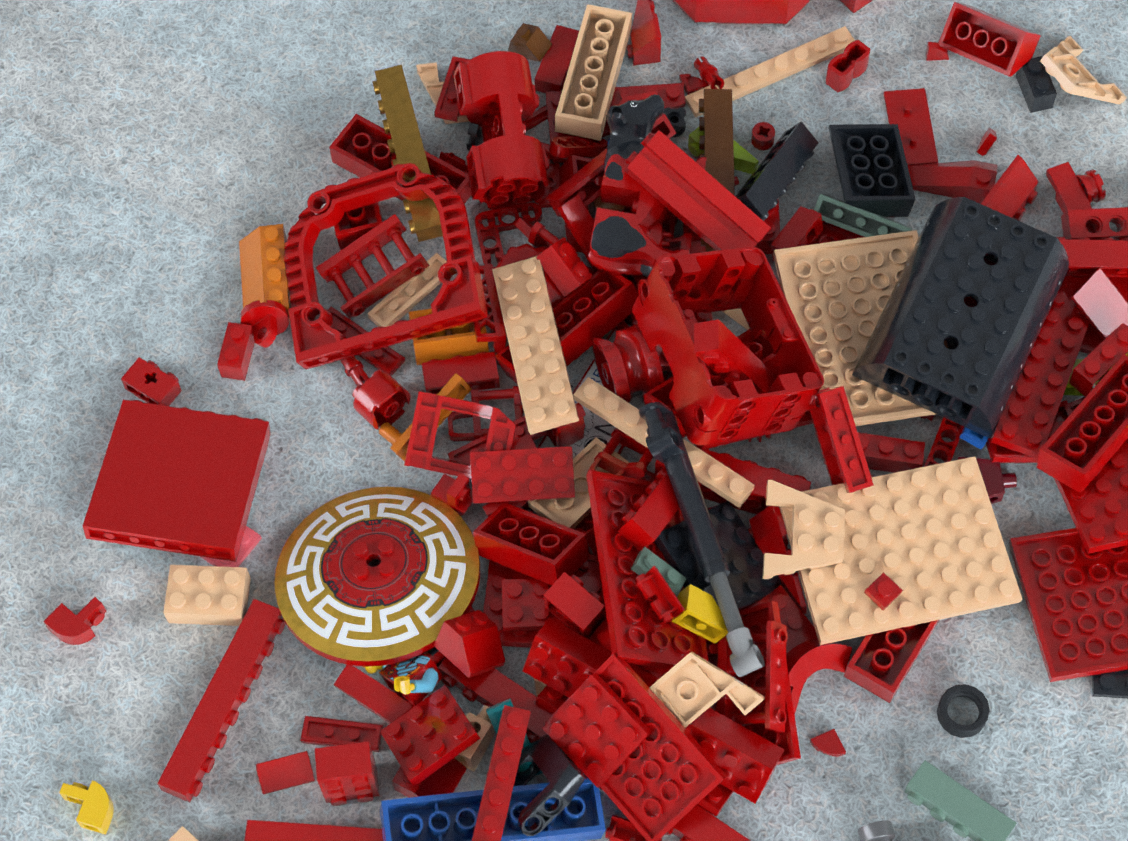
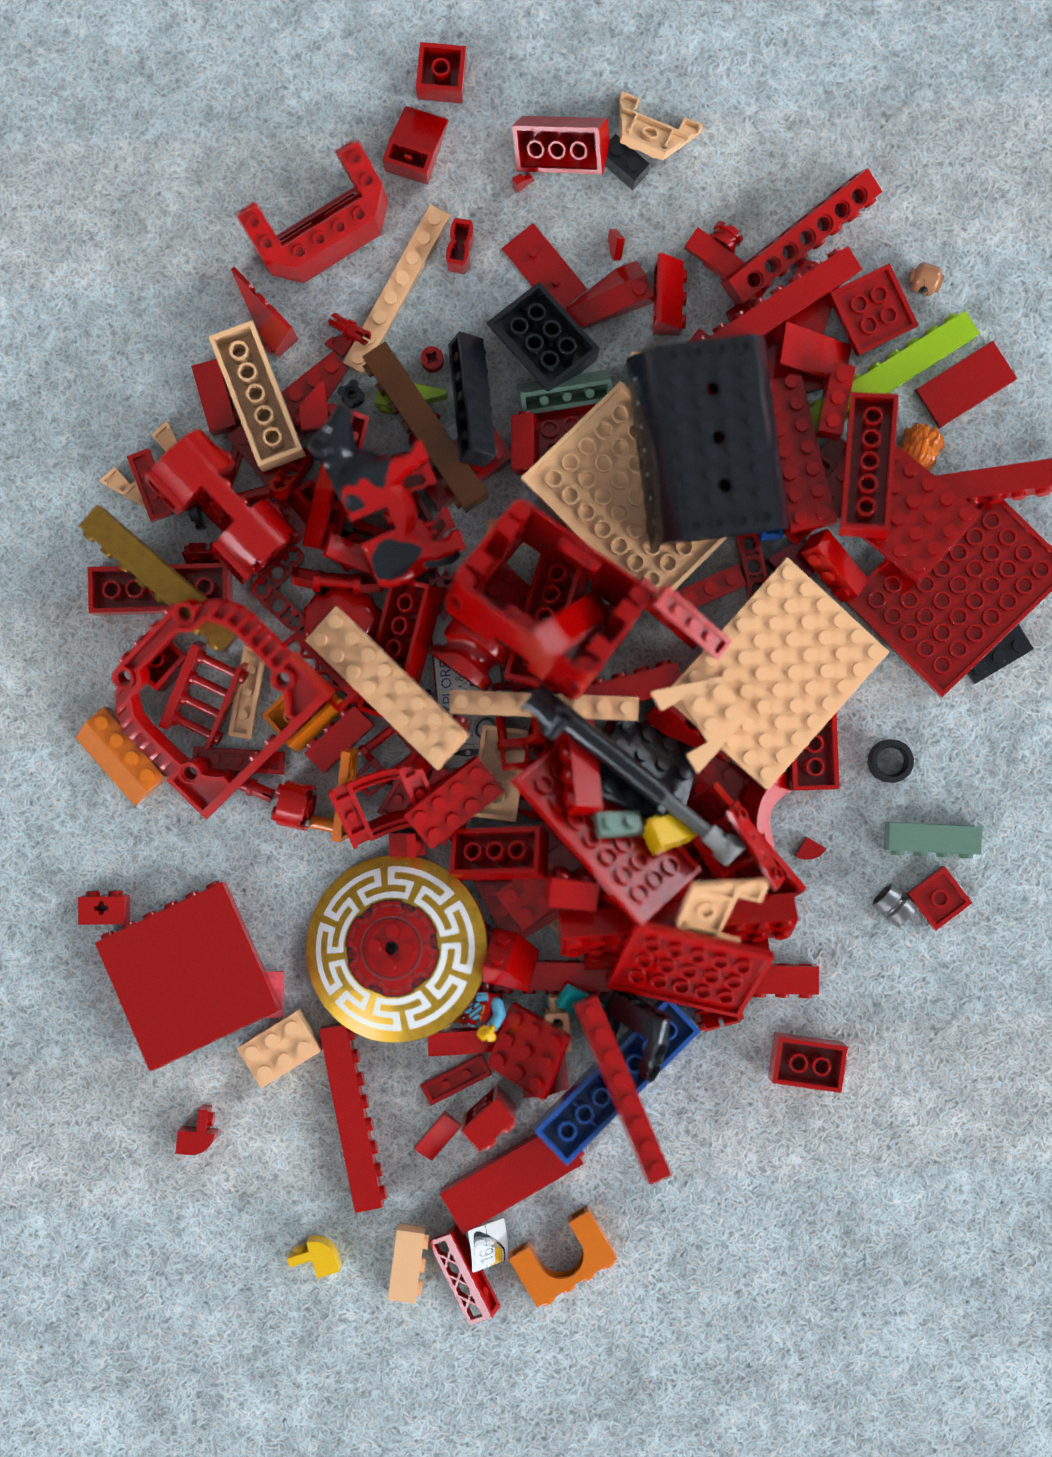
camera: 40 degrees left, 25 degrees up
(236, 351) = (149, 837): red brick -> none
(267, 320) = (155, 802): red tile -> none
(530, 42) = (182, 400): reddish brown slope -> none
(564, 266) = (362, 601): red brick -> none
(596, 729) = (654, 975): red plate -> none
(665, 602) = (624, 843): red hinge -> none
(694, 195) = (436, 483): red brick -> none
(883, 591) = (790, 721): red plate -> none
(1017, 497) = (834, 565): none -> red brick

